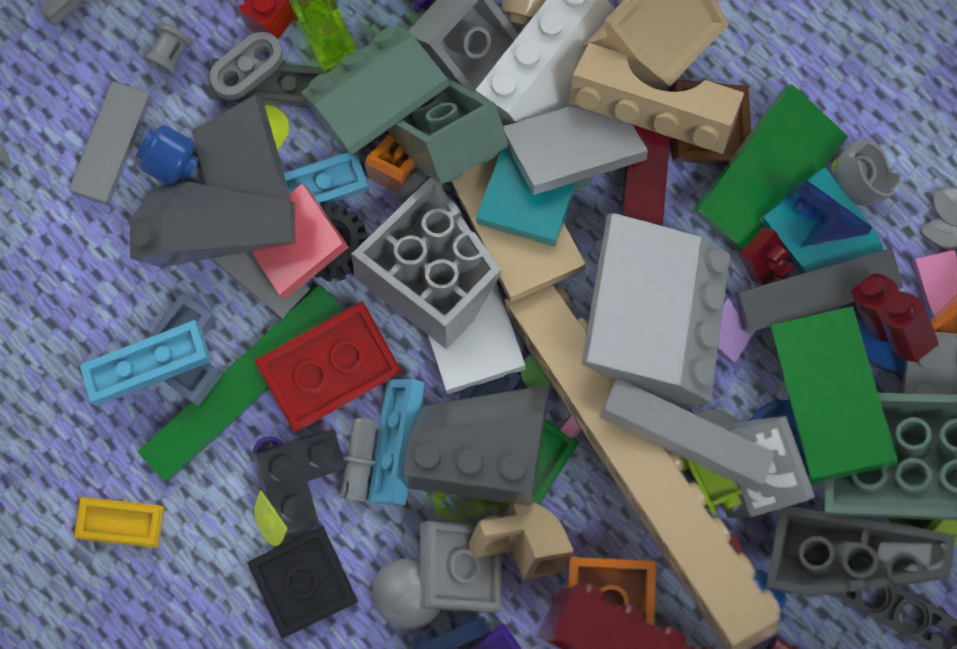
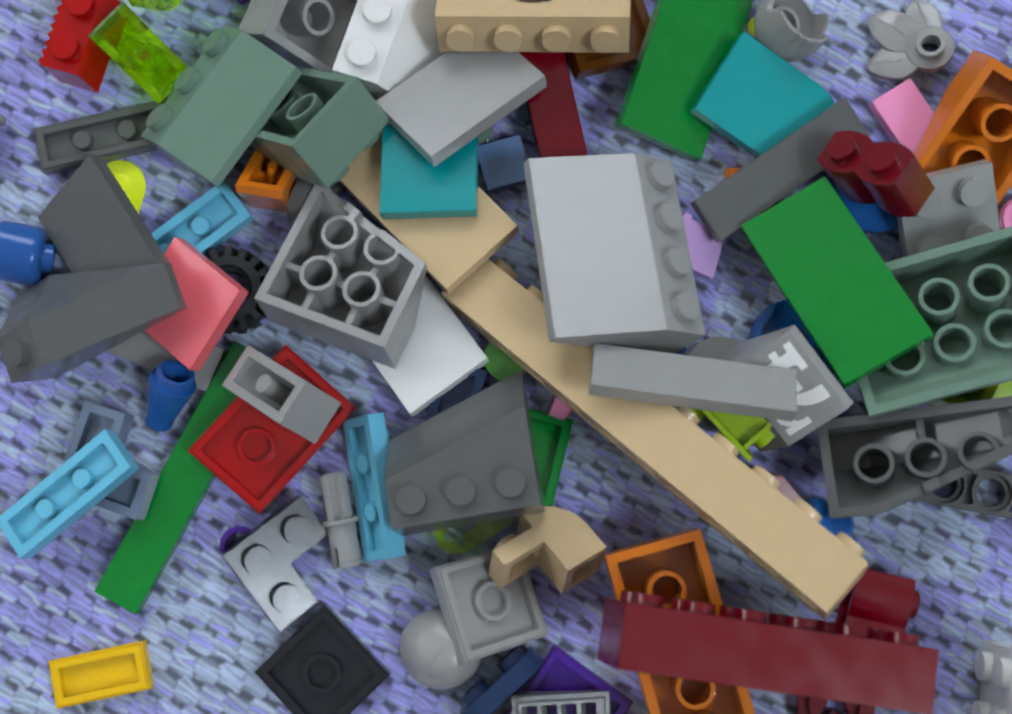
camera: 10 degrees left, 5 degrees up
(243, 64) = (68, 124): light grey plate -> none
(254, 307) = (168, 392): none -> blue cone
(268, 521) = (263, 621): neon yellow piece -> none
(347, 339) = (281, 394): none -> light grey slope
(590, 211) = (503, 163): none -> medium blue tile
(766, 257) = (711, 152): dark red tile -> none
(832, 218) = (771, 85): clear blue slope -> none

